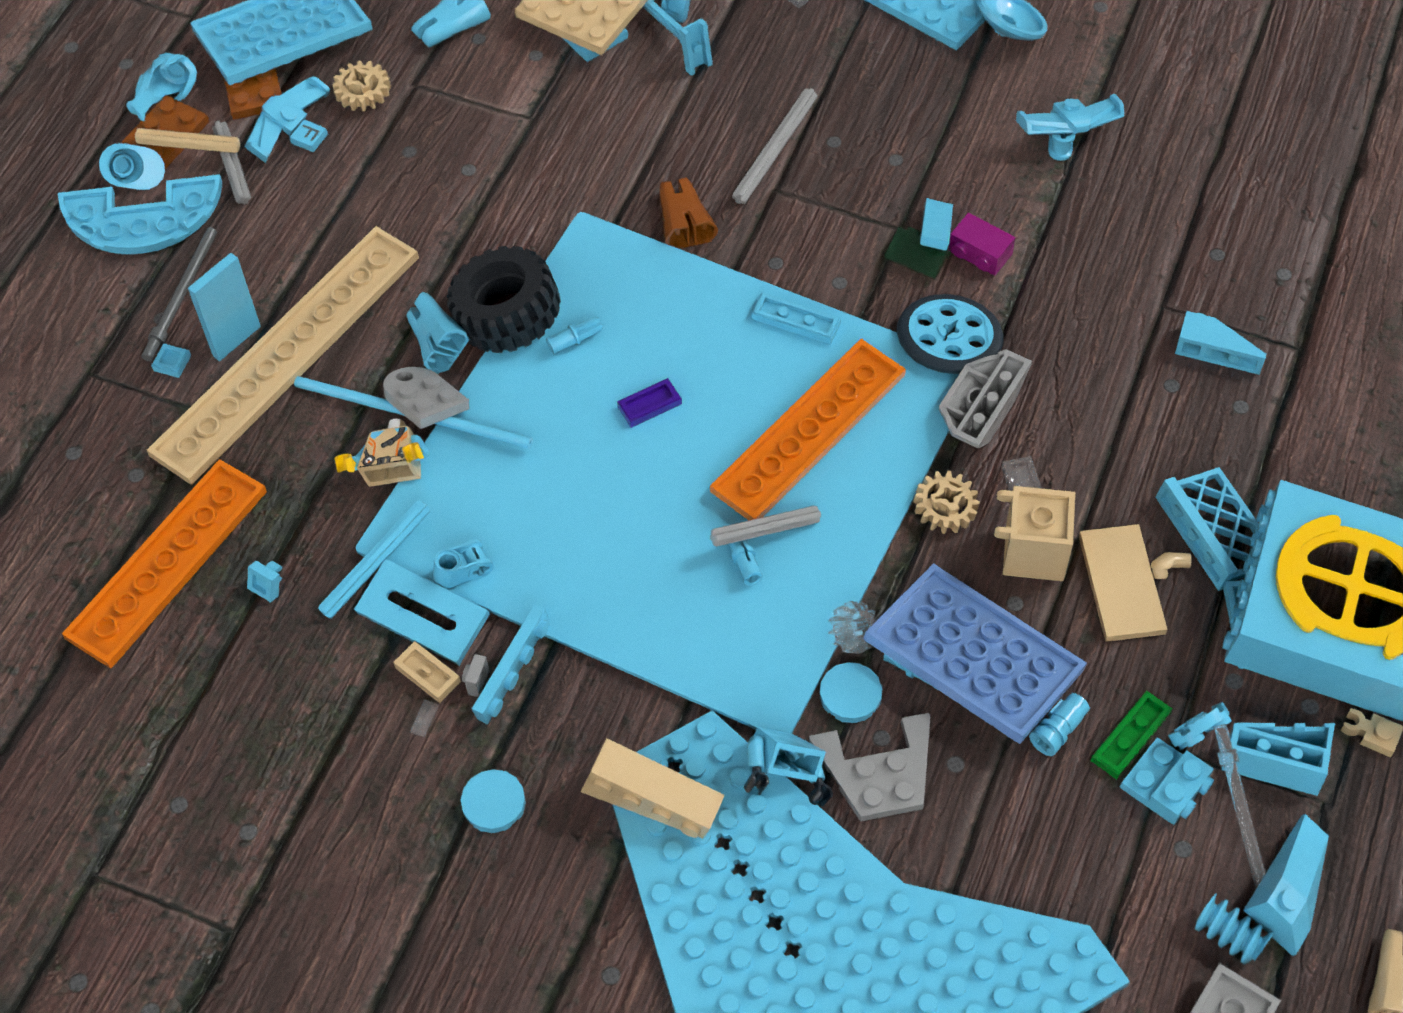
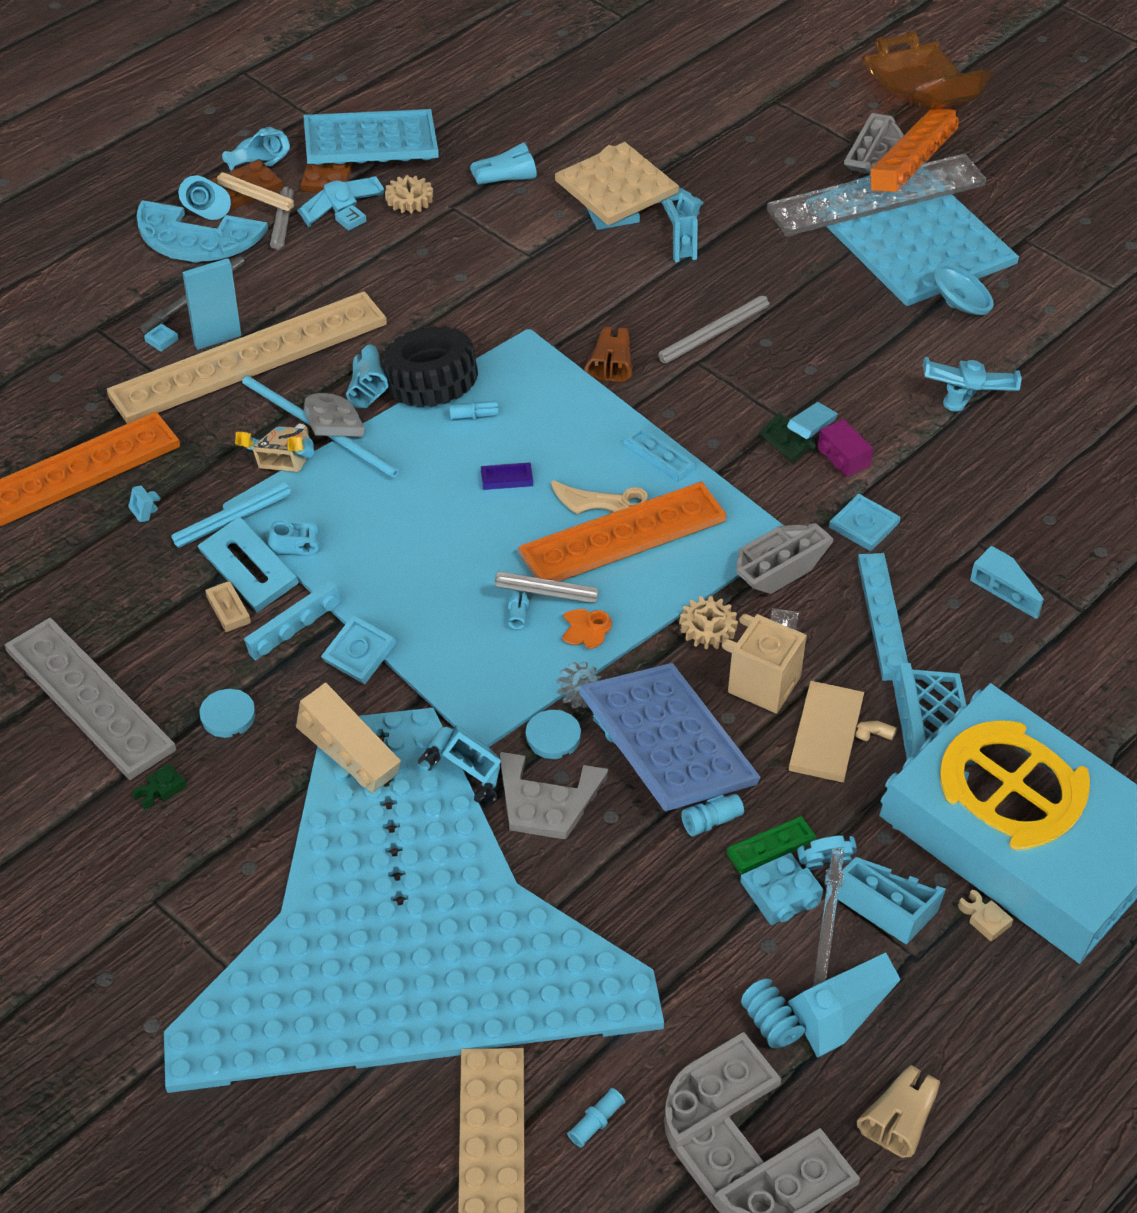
camera: 20 degrees right, 10 degrees down
(332, 842) = (90, 698): none -> light grey plate
(424, 718) = (208, 640): clear piece -> none
(466, 914) = (161, 784): none -> dark green plate
(475, 675) = (262, 616): light grey plate -> none
(600, 672) = (359, 649): none -> medium azure plate
(745, 404) = (581, 500): none -> tan piece
(825, 560) = (587, 627): none -> orange plate
(964, 310) = (779, 501): medium azure wedge -> none
(1040, 324) = (864, 522): none -> medium azure tile
(1111, 426) = (882, 613): none -> medium azure plate

